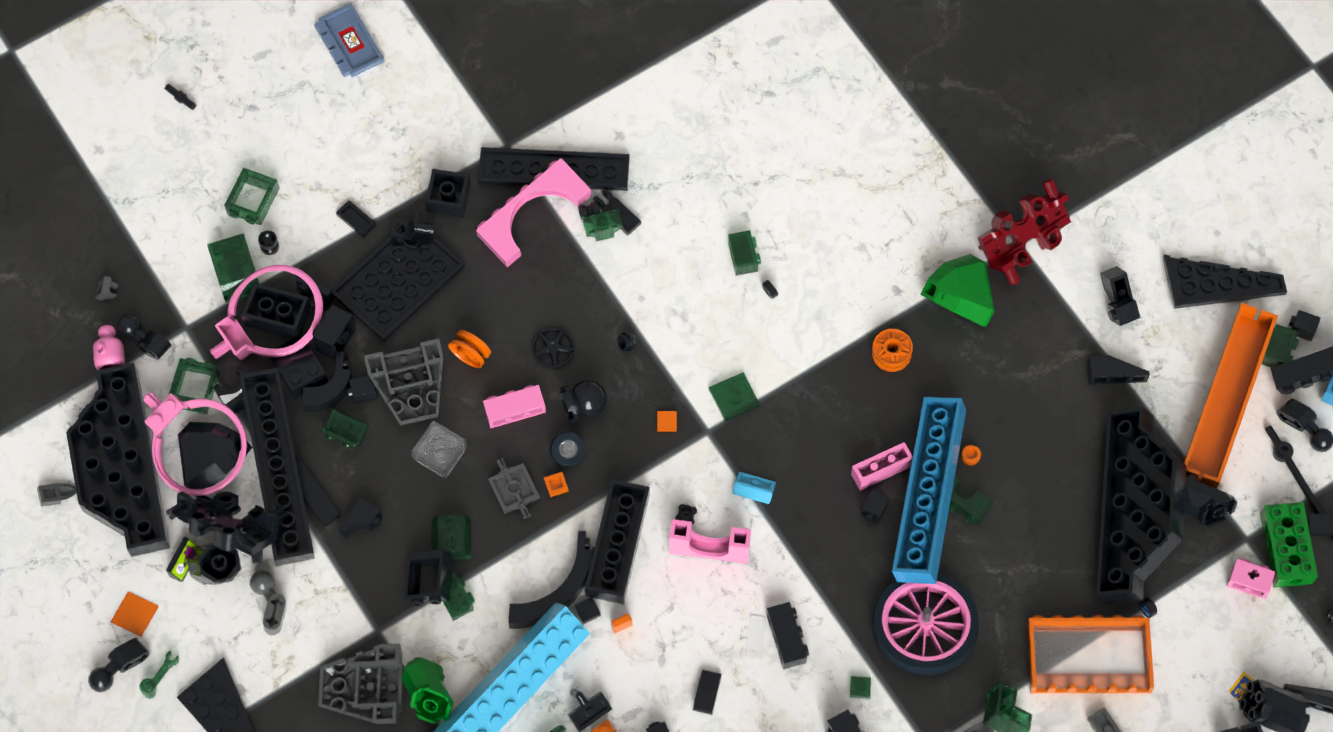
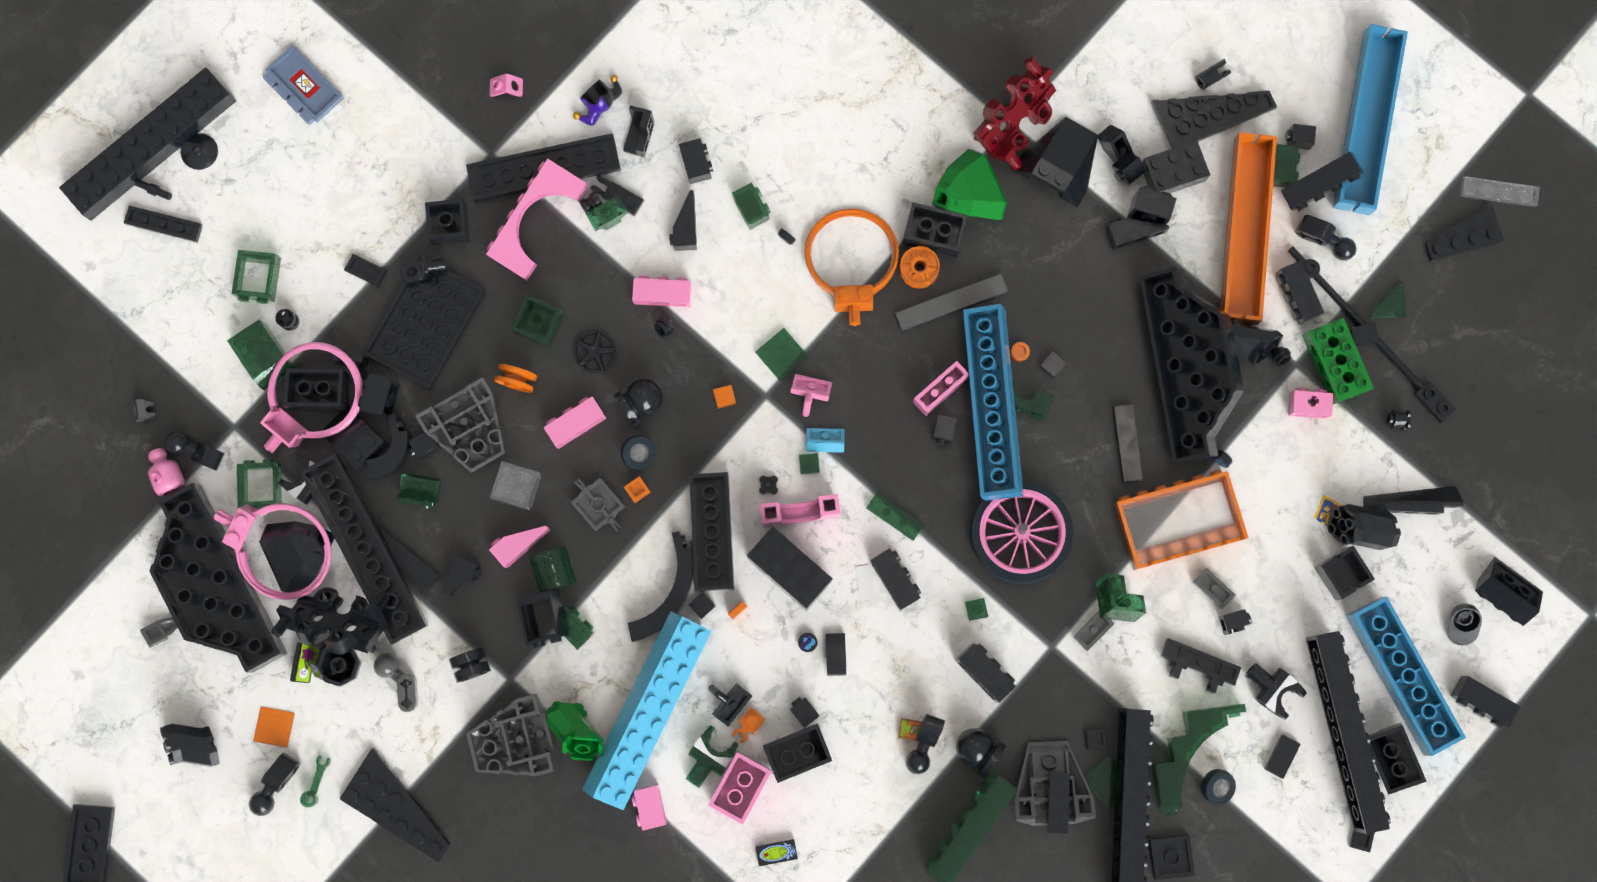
camera: 15 degrees left, 15 degrees up
(50, 604) = (189, 745): none -> black brick
(179, 129) = (163, 224): none -> black tile
(189, 55) = (147, 144): none -> black brick
(237, 80) = (204, 157): none -> black dish
(343, 602) = (469, 665): none -> black wheel
(419, 505) = (514, 546): none -> bright pink slope
(506, 304) = (537, 321): none -> clear green brick
(538, 85) = (502, 84): none -> bright pink bracket
(624, 122) = (598, 100): none -> piece
(634, 309) = (662, 291): none -> bright pink brick
(656, 159) = (639, 131): none -> black panel
(673, 256) = (684, 229): none -> black slope
(682, 673) = (807, 642): none -> black tile
(684, 591) = (789, 568): none -> black brick
(701, 199) = (695, 161): none -> black brick
(732, 505) = (809, 463): none -> clear green tile
(752, 434) = (811, 389): none -> bright pink plate
(803, 577) = (895, 516): none -> clear green tile
(817, 360) = (852, 297): none -> orange brick
(914, 391) = (951, 302): none -> dark grey tile
(916, 317) = (934, 229): none -> black brick
(1000, 475) = (1053, 364): none -> black tile
(1056, 569) = (1127, 443): none -> black tile
(1061, 288) = (1062, 159): none -> black wedge
(1137, 348) = (1151, 206): none -> black brick
(1170, 323) = (1176, 168): none -> black brick
(1229, 247) = (1211, 75): none -> black hinge
(1233, 525) = (1281, 355): none -> black plate
(1266, 470) = (1299, 292): none -> black brick

